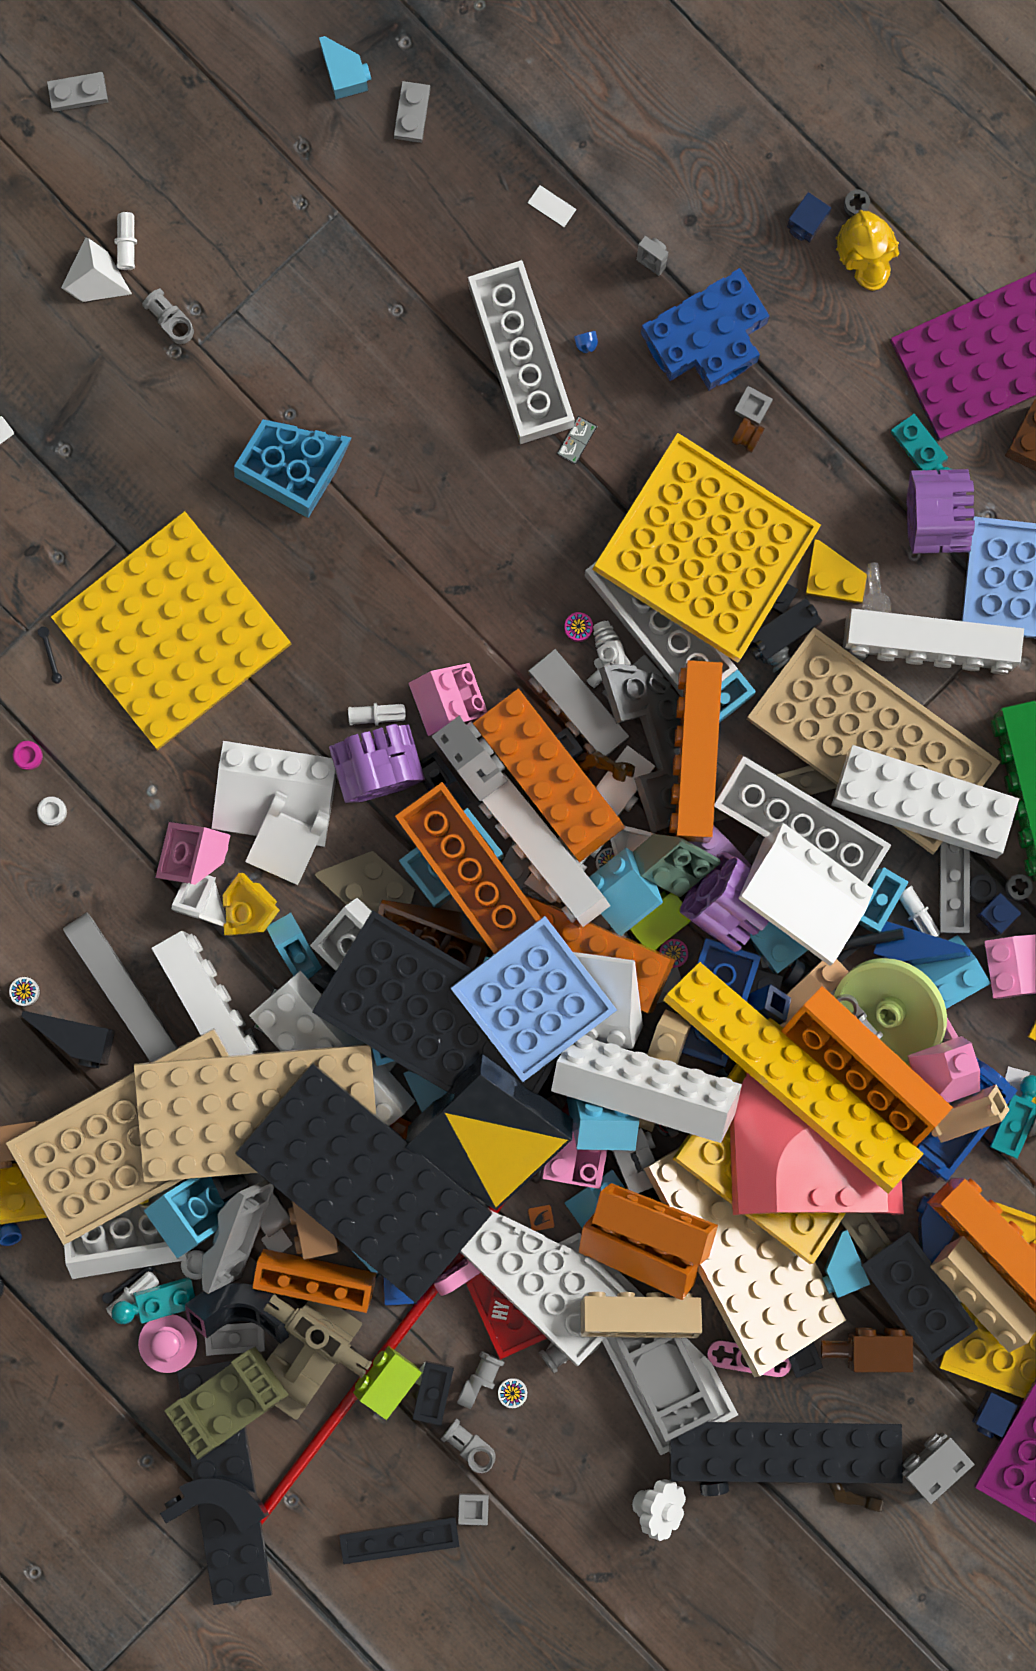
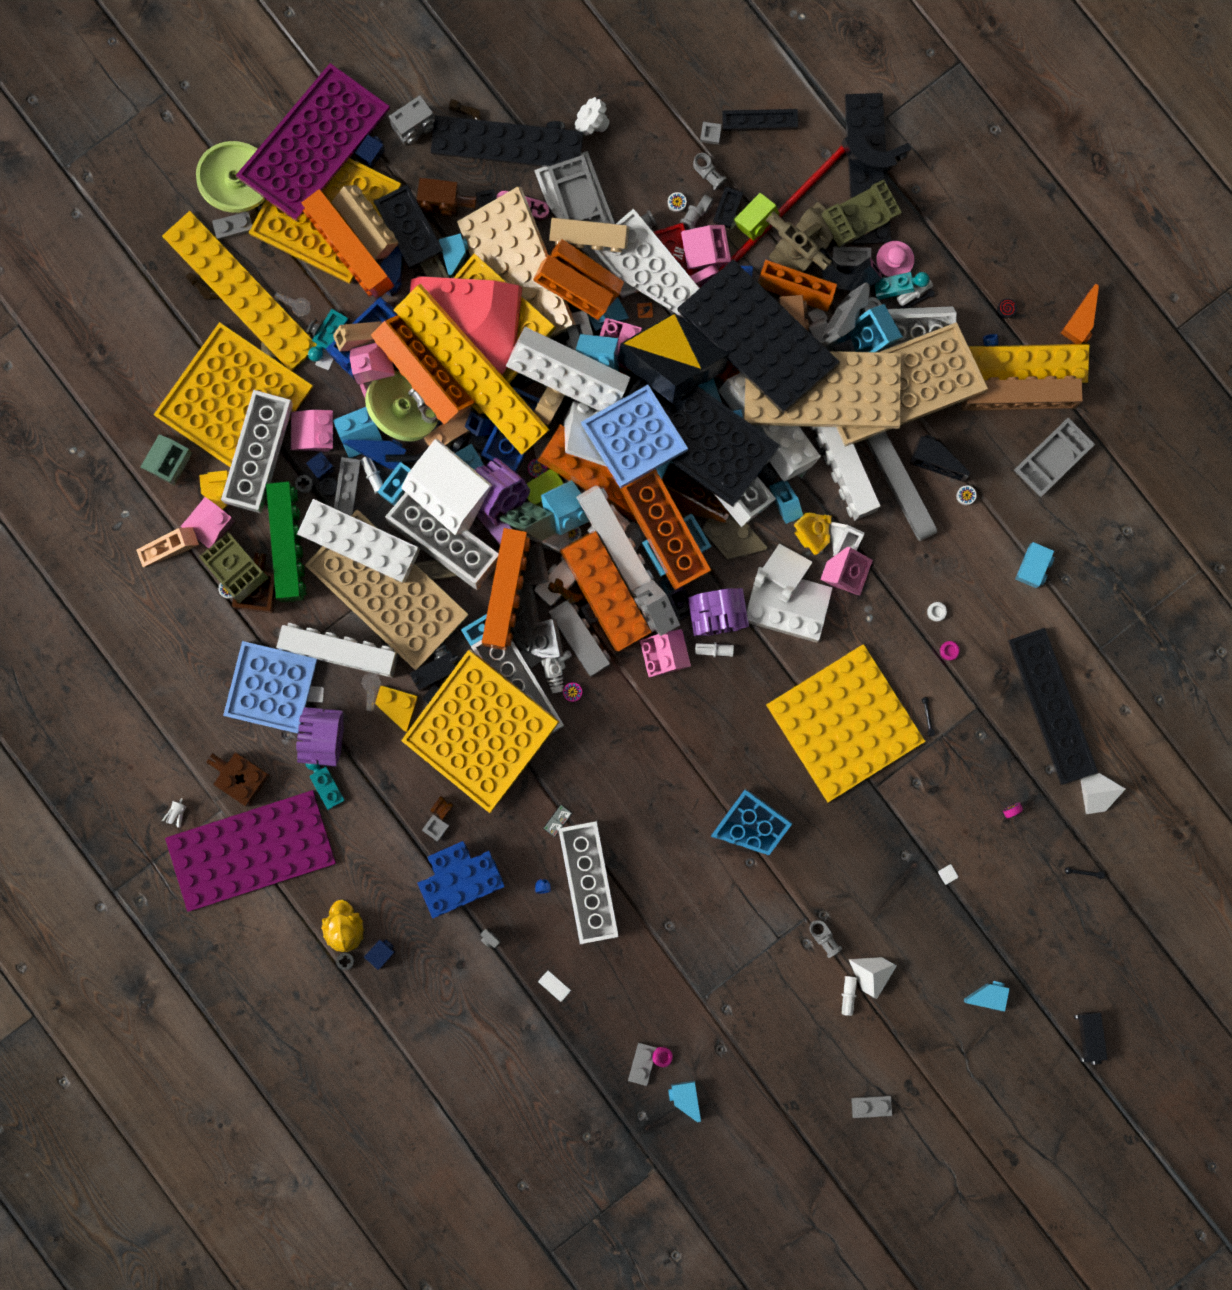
camera: 175 degrees left, 0 degrees up
(384, 123) = (662, 1057): none -> dark pink tile
(459, 1322) = (706, 247): none -> bright pink slope
(955, 579) = (316, 694): none -> white sticker

